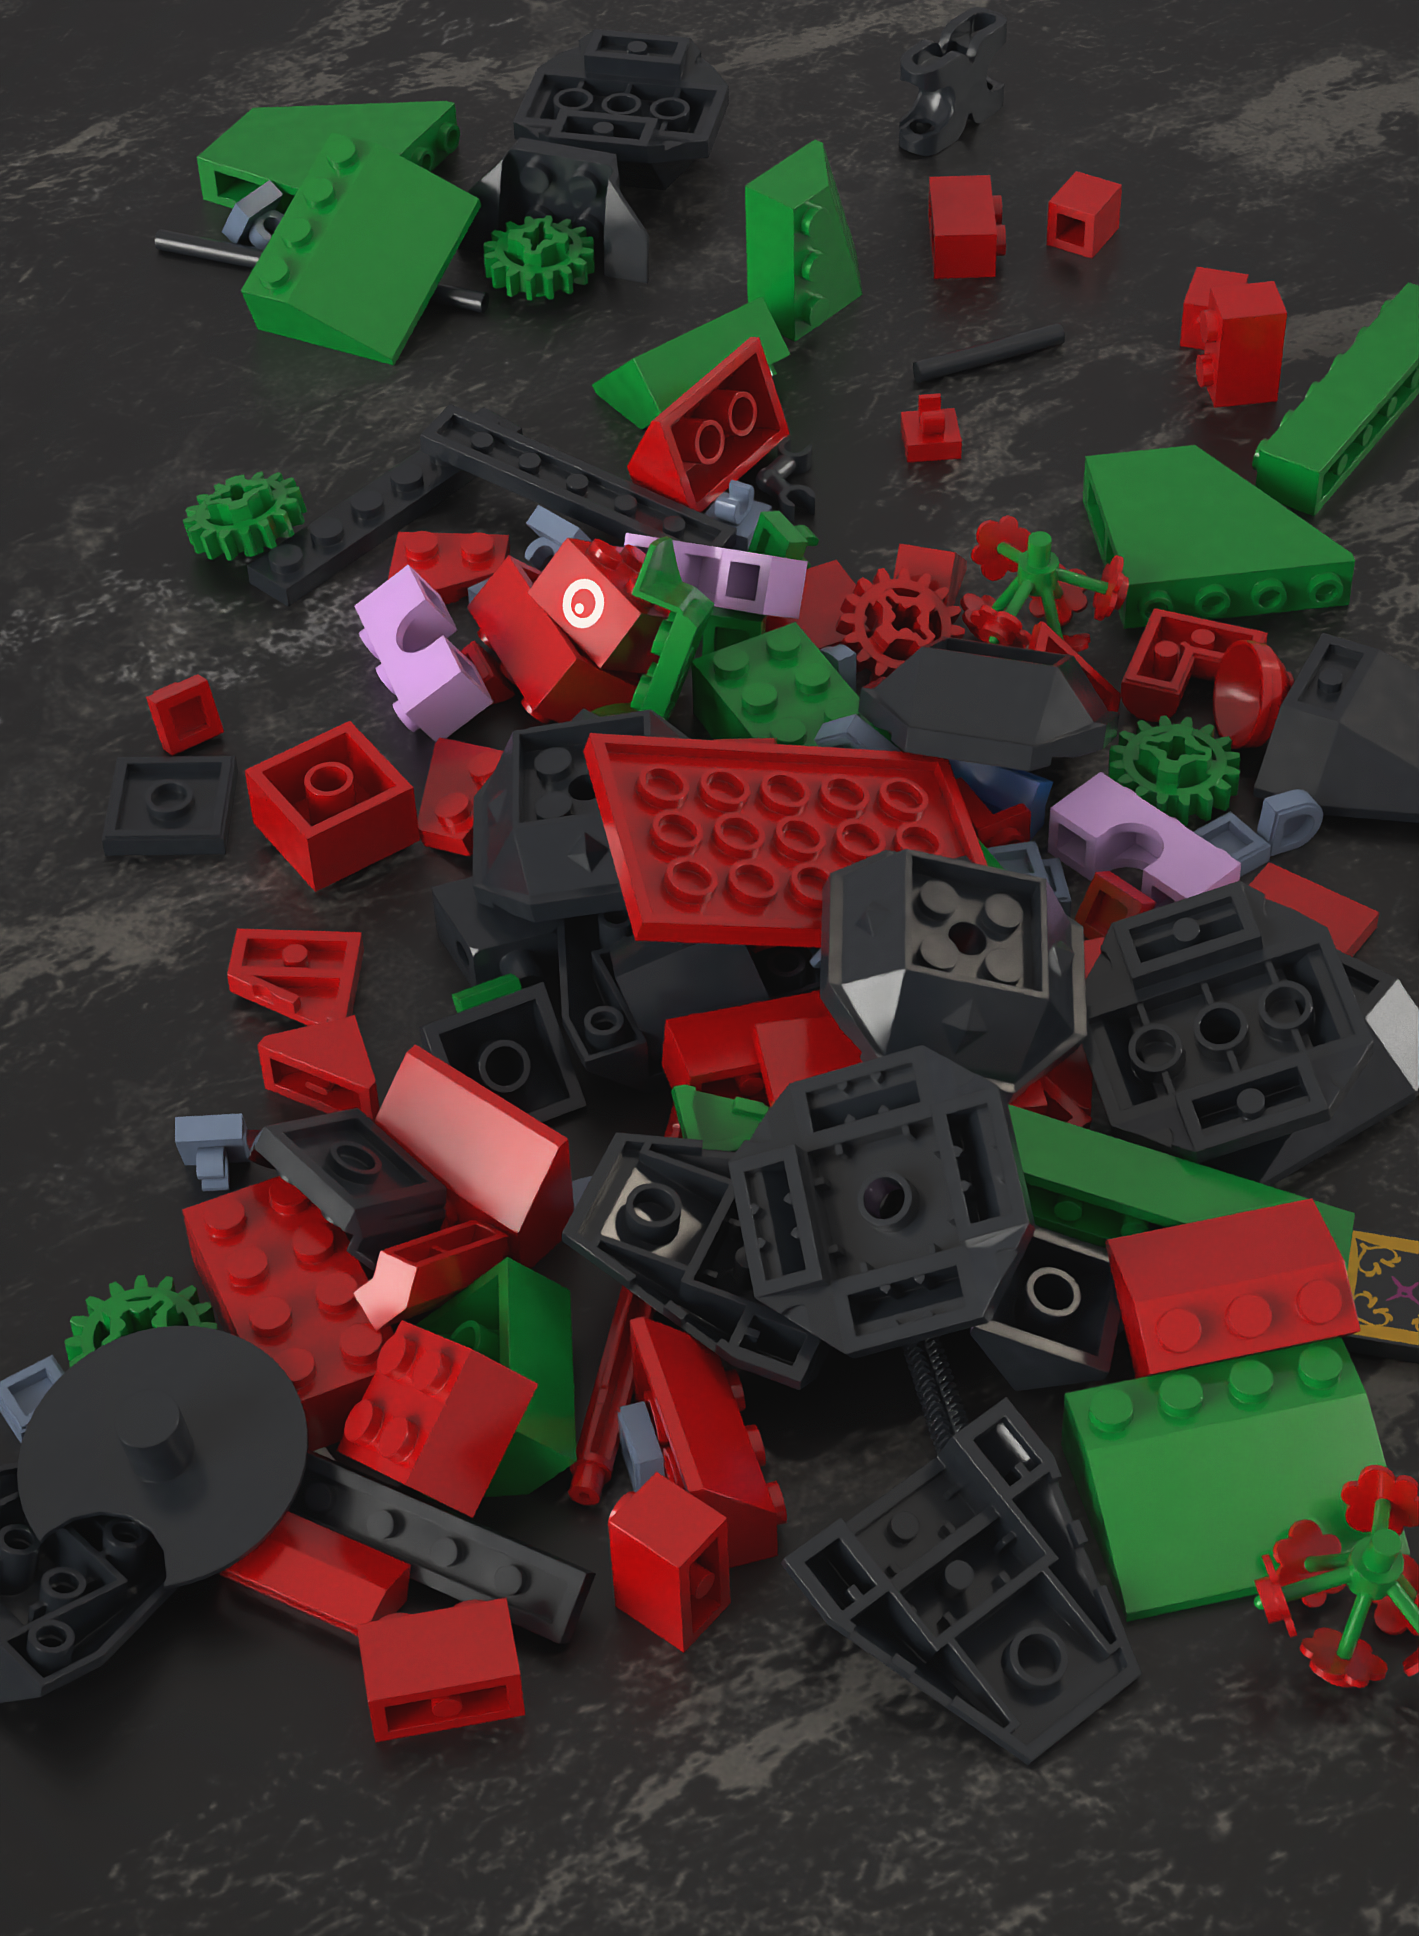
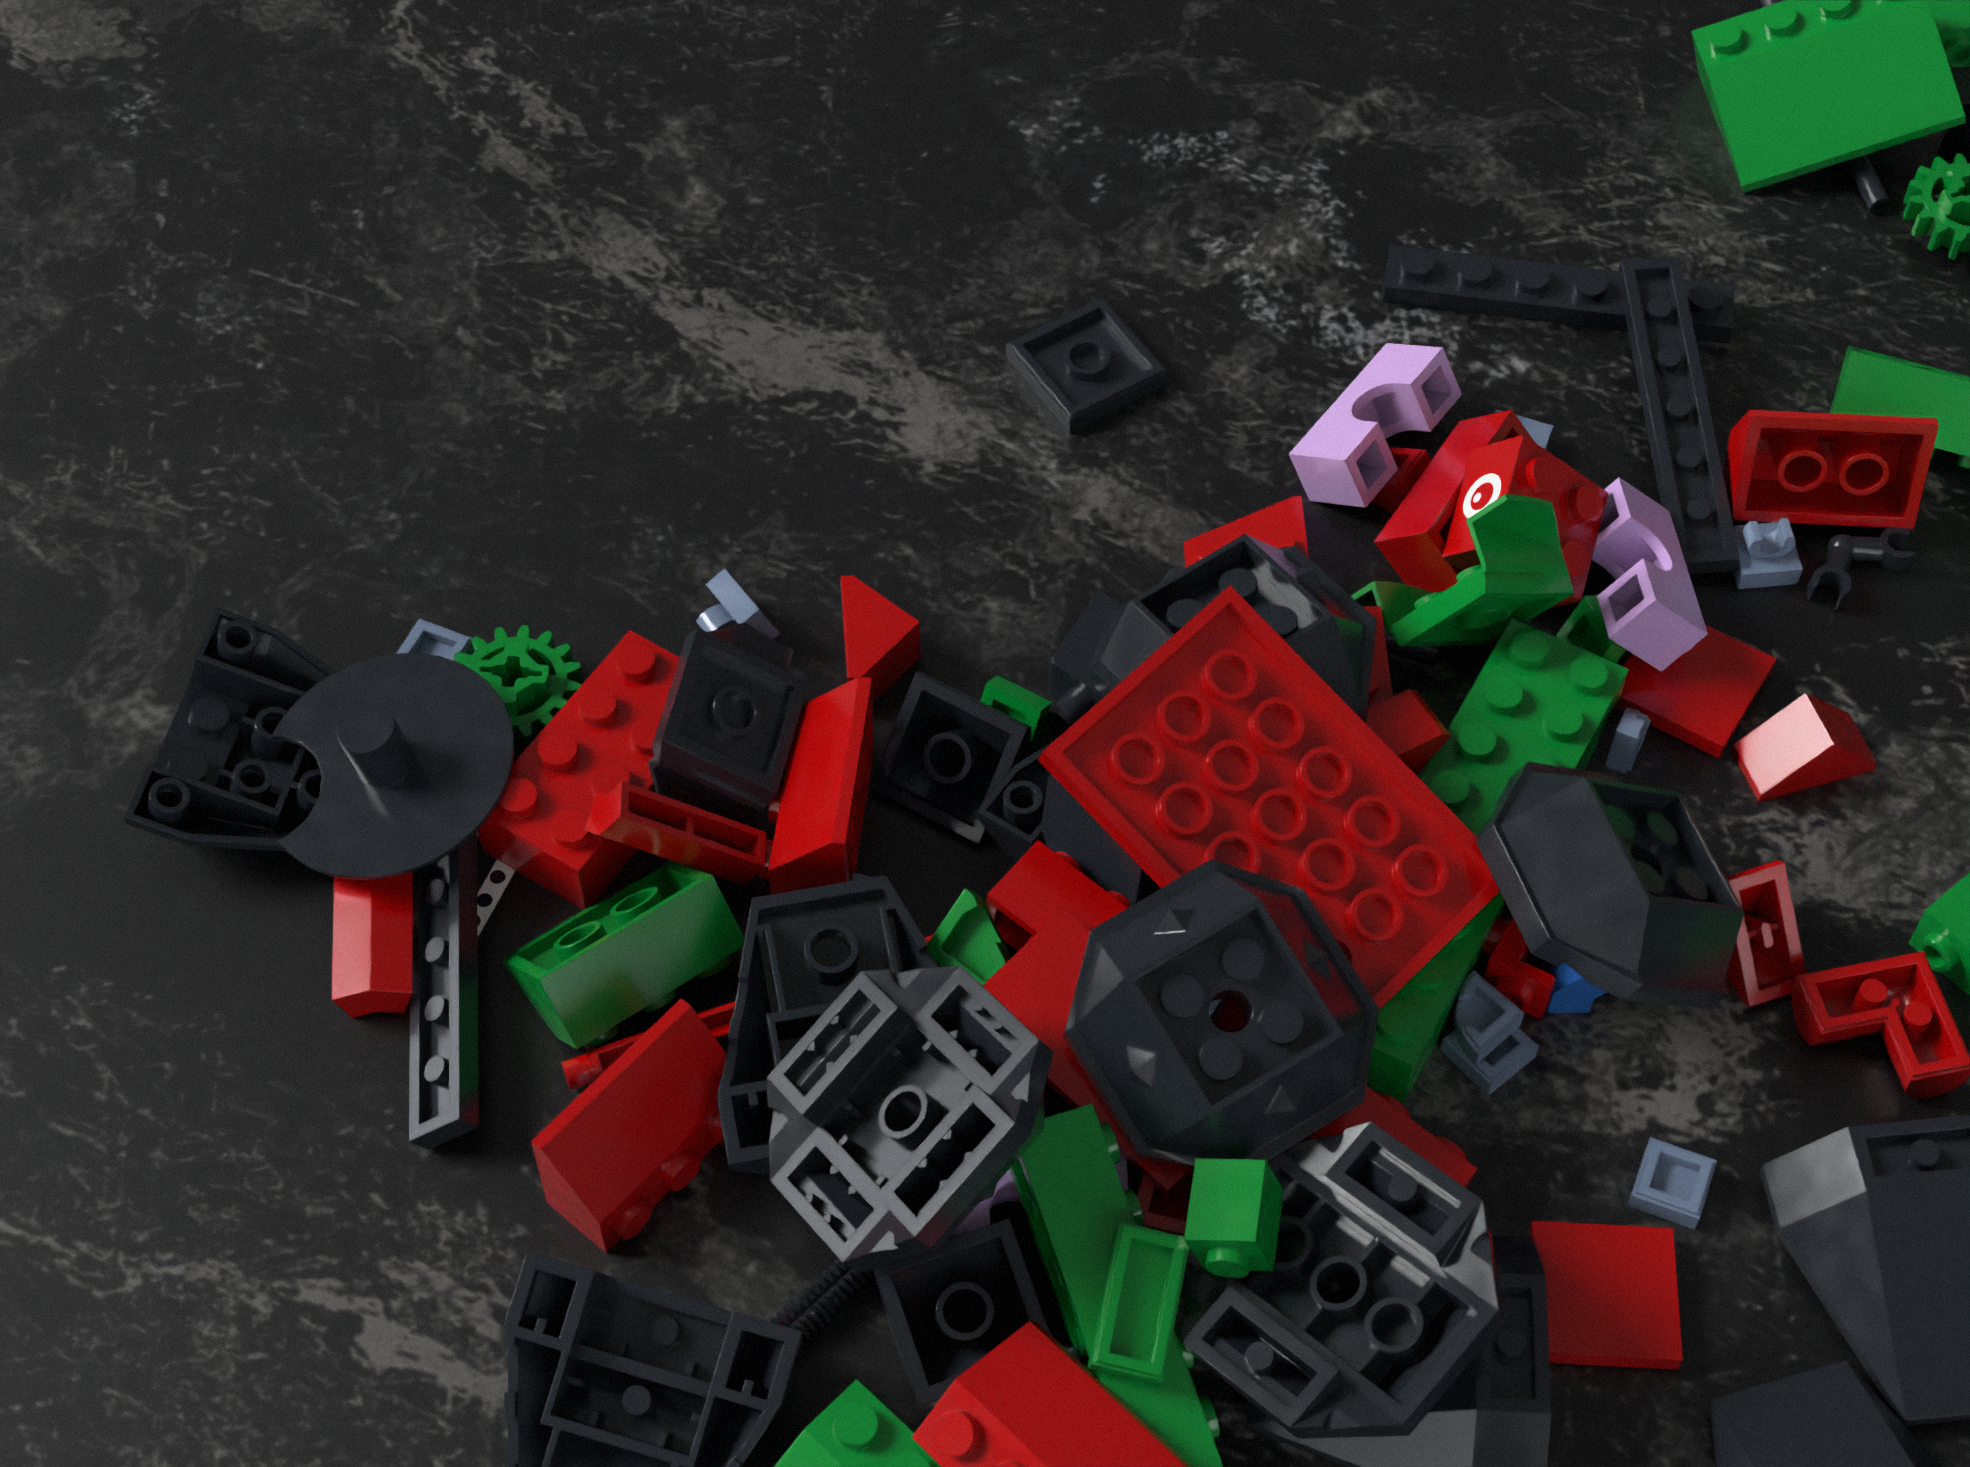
camera: 55 degrees right, 10 degrees up
(184, 714) = (1179, 308): red tile -> none
(245, 515) = (1439, 206): green gear -> none
(298, 971) = (963, 562): red wing -> none
(332, 805) = (1145, 468): red brick -> none
(437, 1417) = (524, 922): red brick -> none
(440, 1669) = (333, 1071): red brick -> none
(450, 560) = (1517, 374): red wing -> none
(552, 533) = (1609, 440): sand blue tile -> none
(669, 1560) = (498, 1171): red brick -> none
(779, 538) = (1748, 609): green tile -> none
(852, 733) = (1480, 792): sand blue tile -> none
(892, 607) = (1742, 764): red gear -> none
(1041, 577) = (1853, 825): red plant -> none
(1109, 901) = (1495, 1129): red tile -> none
(1113, 828) = (1584, 1169): lavender arch -> none
(1119, 1056) = (1234, 1216): none -> green brick
(1147, 1158) = (1139, 1304): none -> green tile
(1177, 767) = (1725, 1083): green gear -> none
(1249, 693) = (1877, 1094): red piece -> none
(1289, 820) = (1740, 1218): sand blue tile -> none

